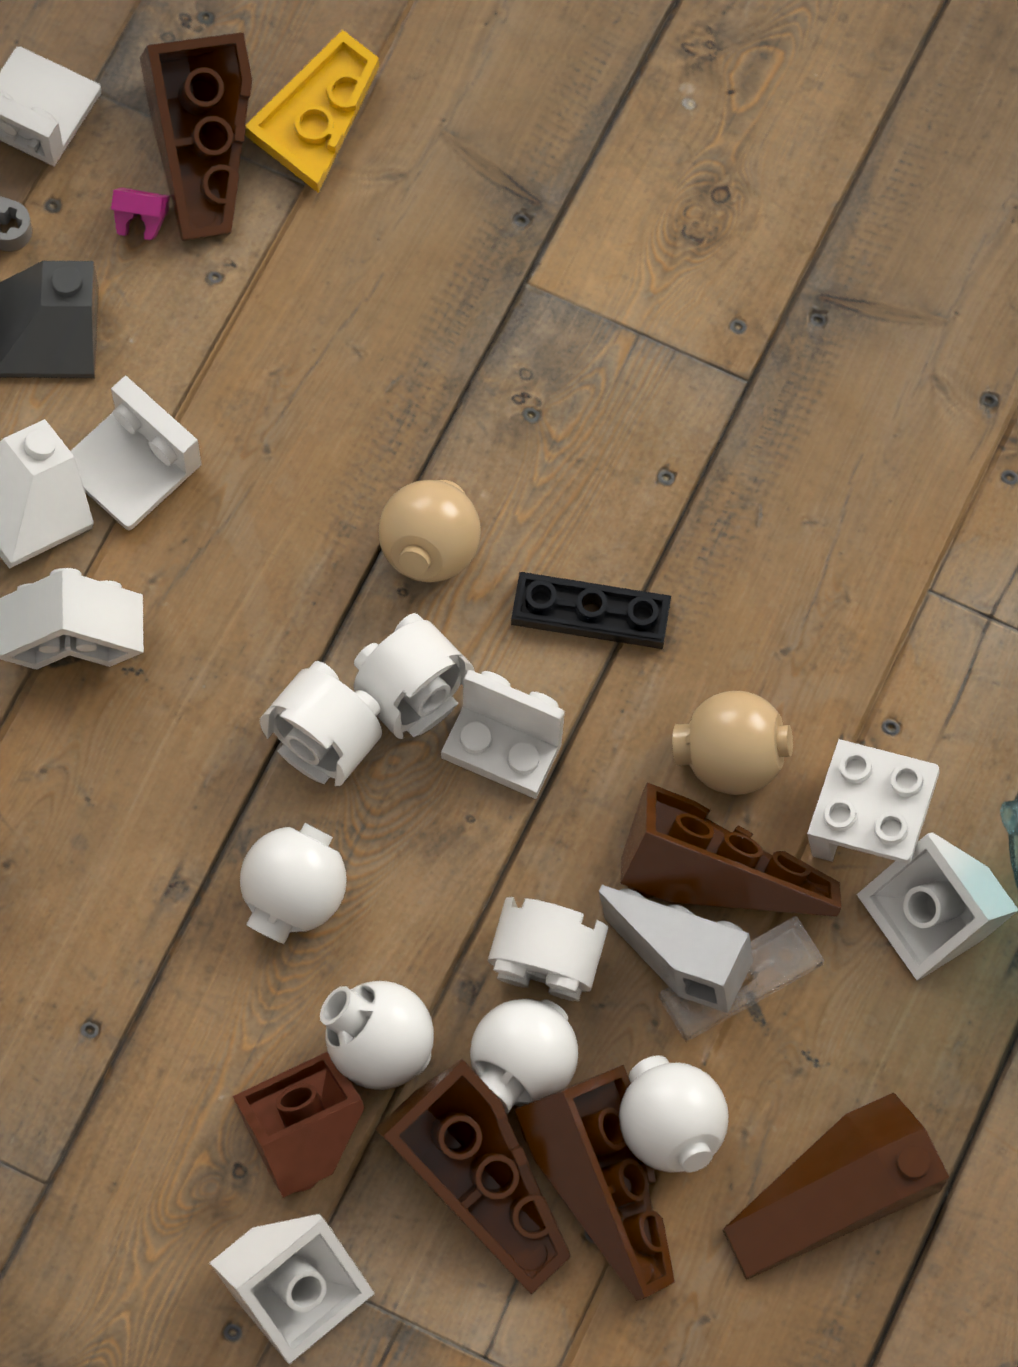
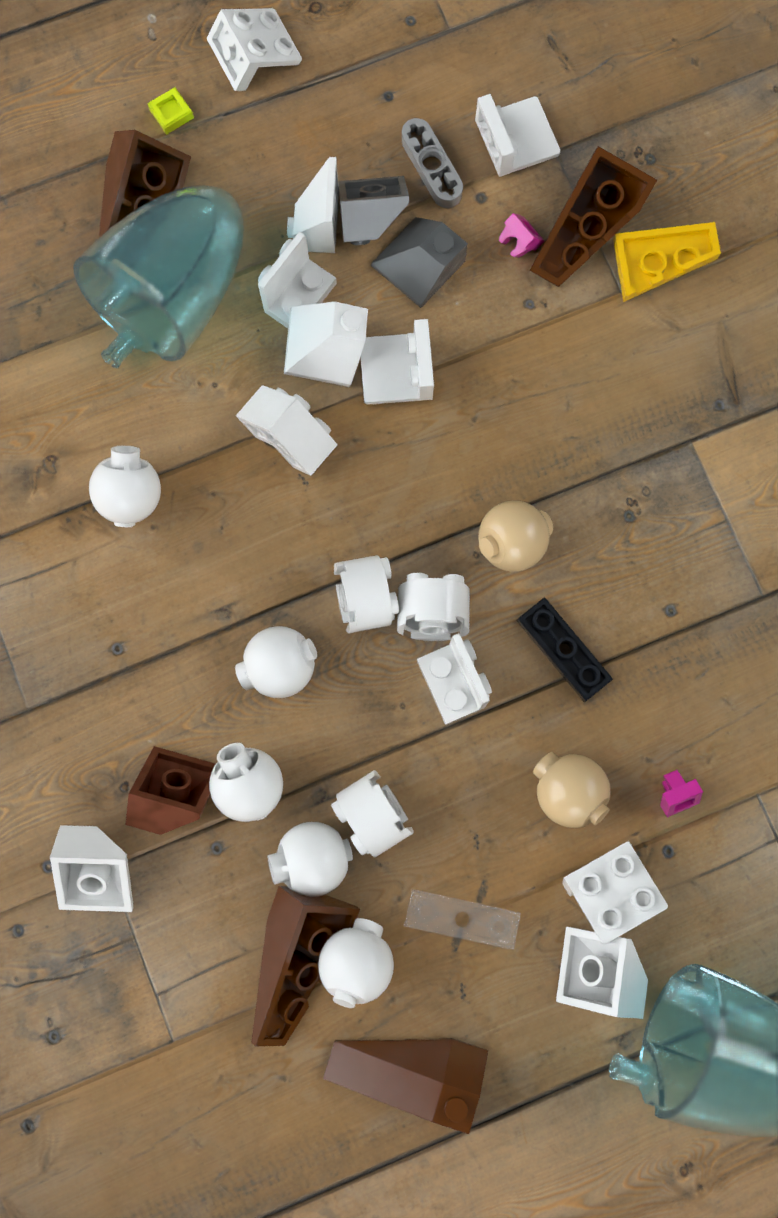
camera: 45 degrees right, 10 degrees up
(470, 1158) = (233, 891): reddish brown wedge -> none
(689, 953) = (443, 887): slope -> none
(694, 861) = (497, 837): reddish brown wedge -> none
(848, 653) = (679, 794): none -> dark pink tile

